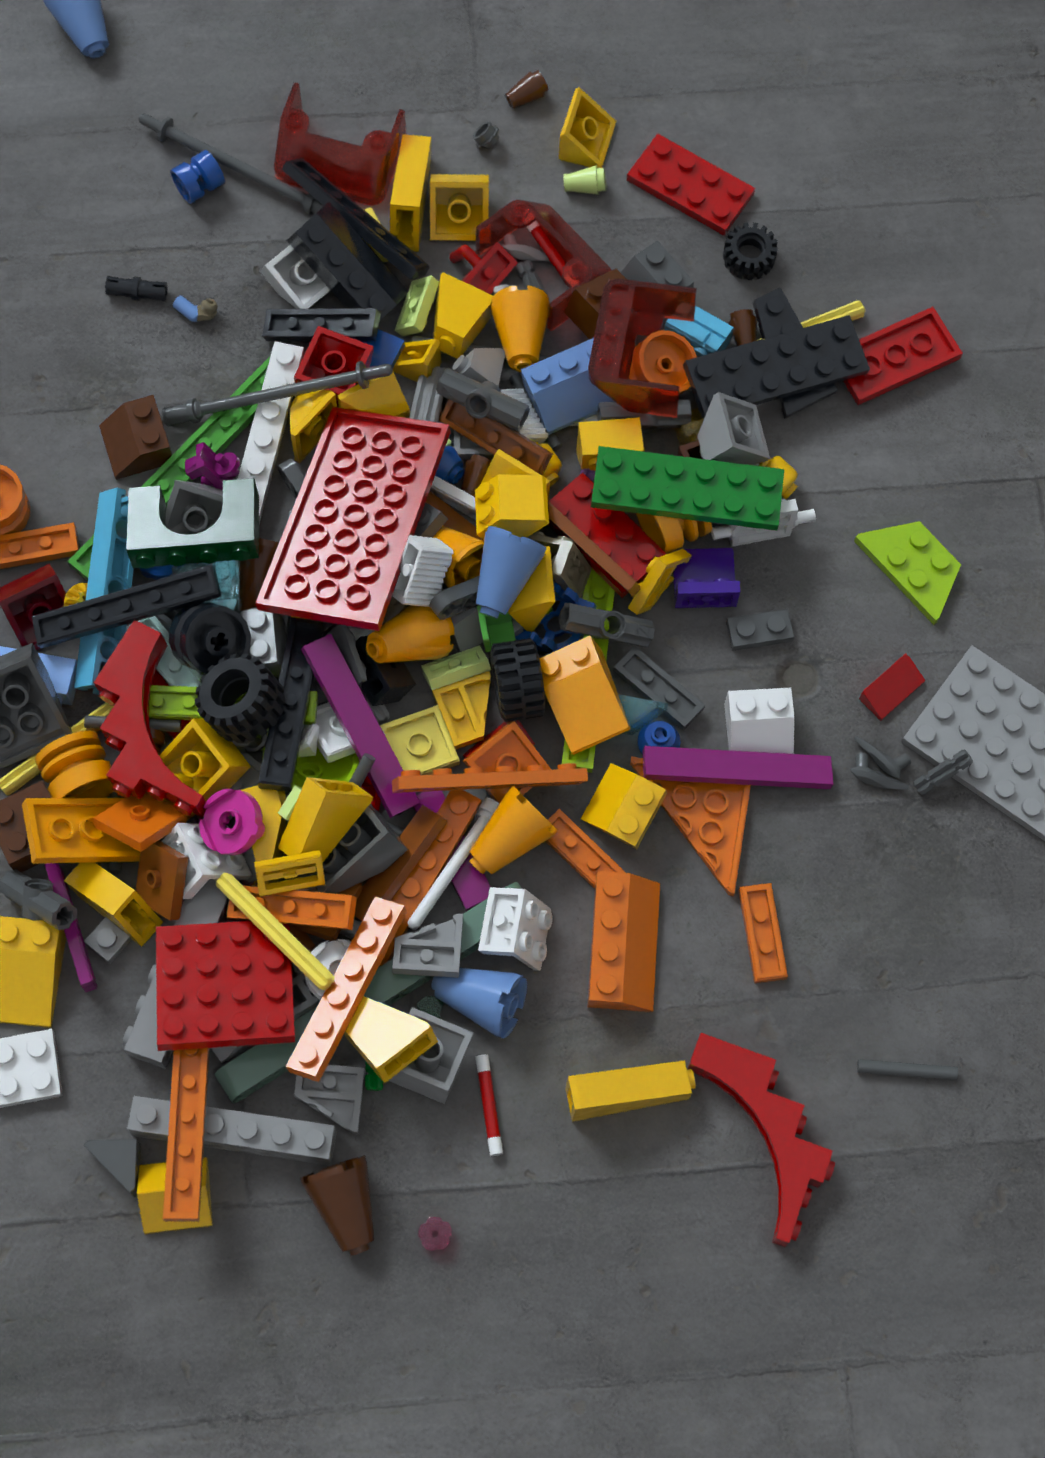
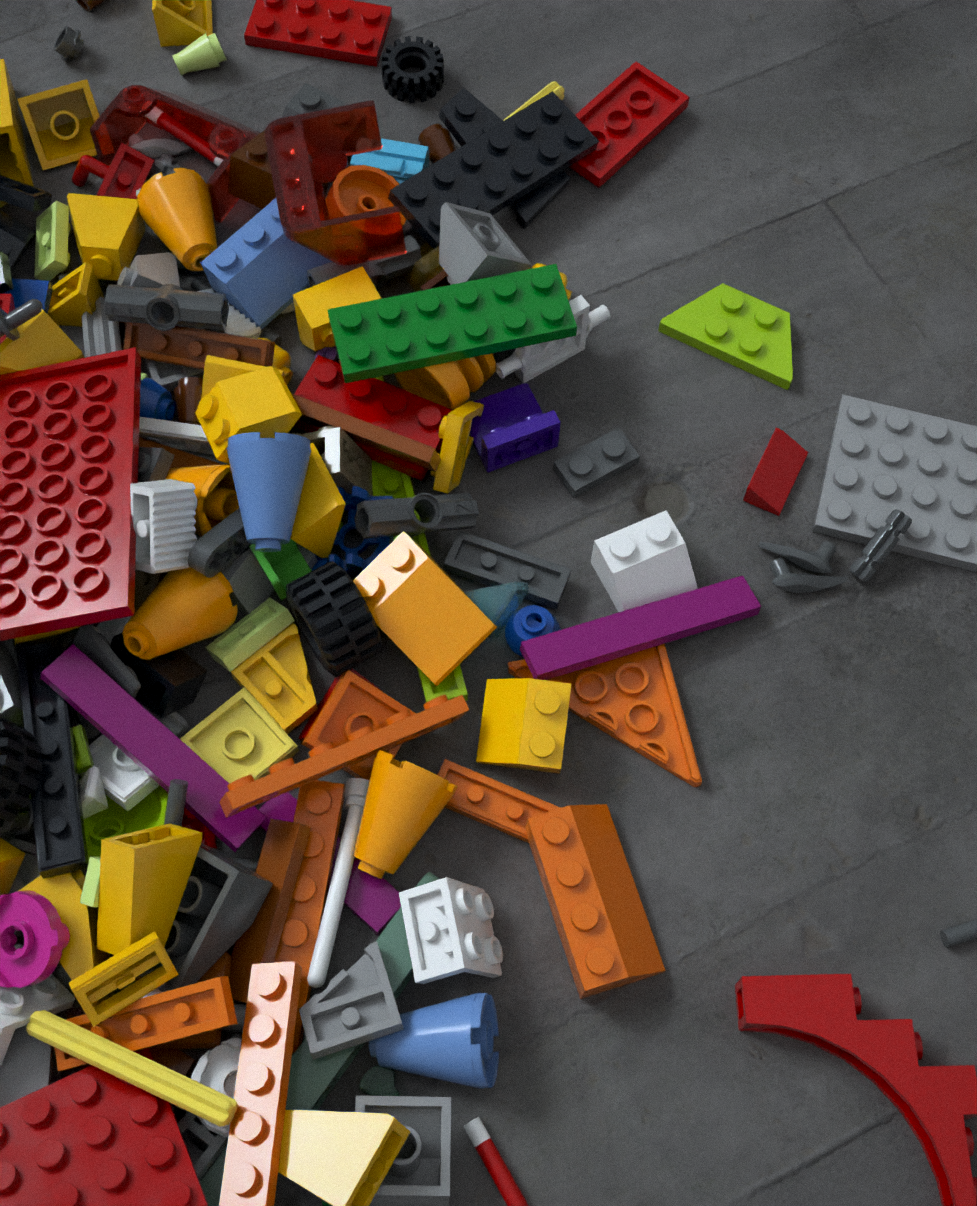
camera: 20 degrees left, 5 degrees down
(628, 1089) = (680, 1090): yellow slope -> none
(762, 933) = (756, 818): orange tile -> none

